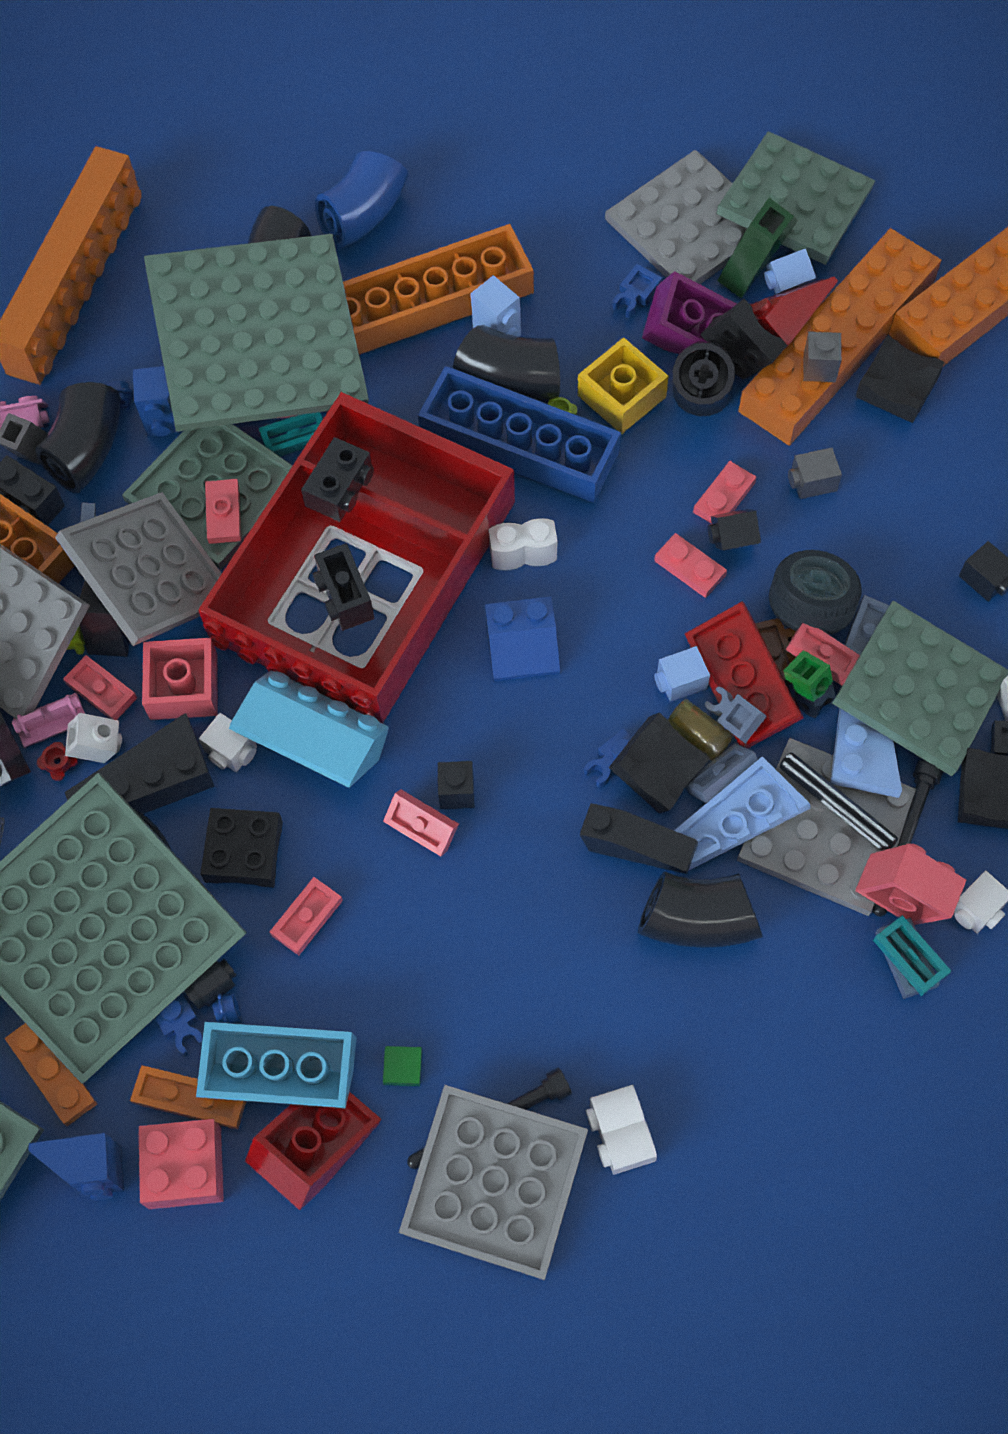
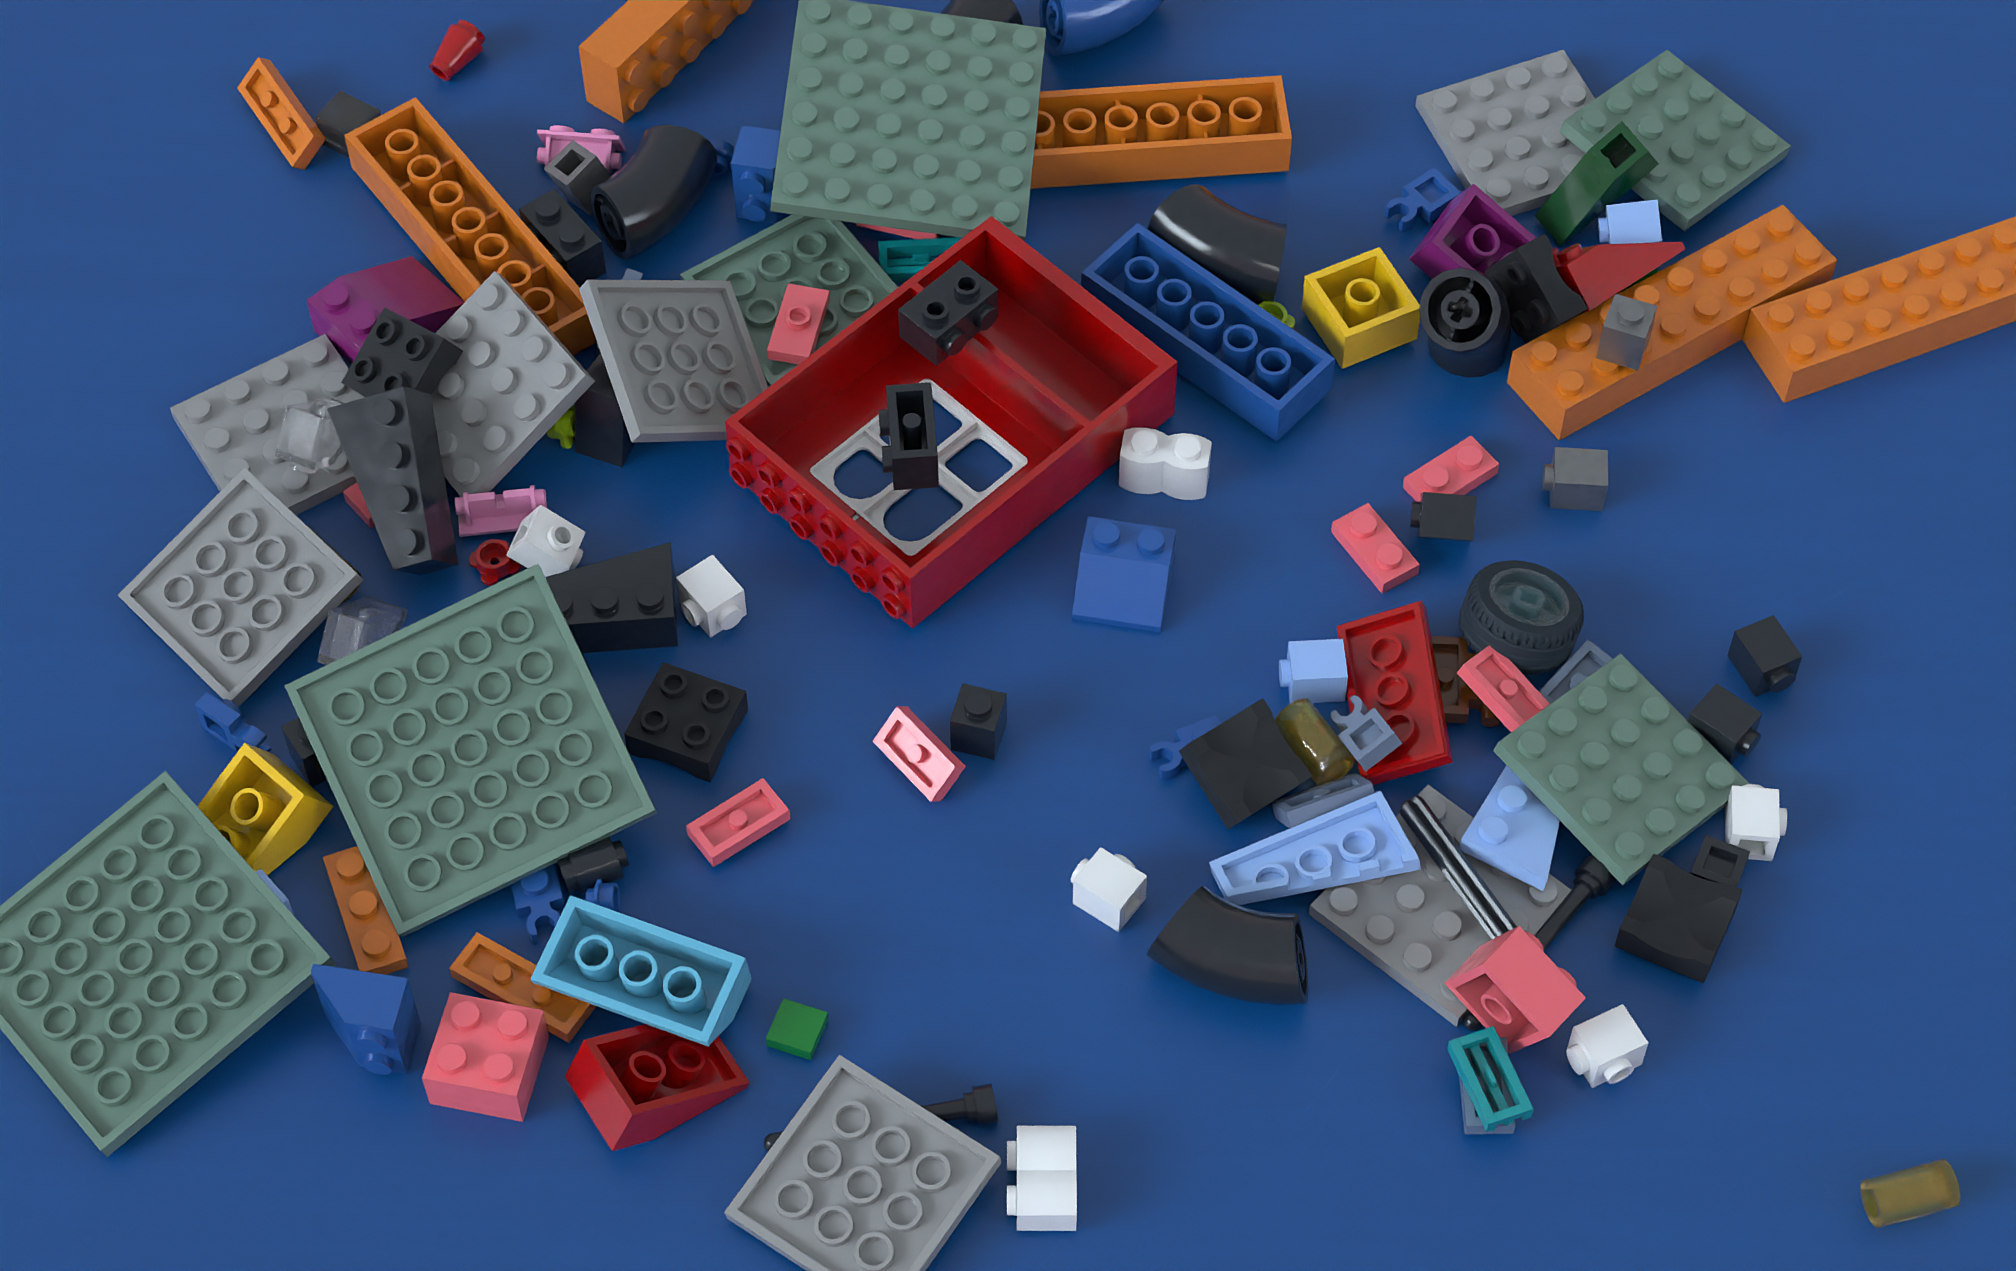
camera: 15 degrees right, 10 degrees down
(100, 688) = (576, 491): coral plate -> none
(180, 678) = (677, 502): coral brick -> none
(310, 728) = (819, 602): medium azure slope -> none
(496, 307) = (1228, 170): light blue brick -> none
(591, 886) = (1109, 888): none -> white brick
(636, 839) = (1182, 844): black slope -> none
(811, 683) = (1475, 721): green leg -> none
(899, 380) = (1731, 395): black brick -> none
(981, 630) = (1727, 723): none -> black brick

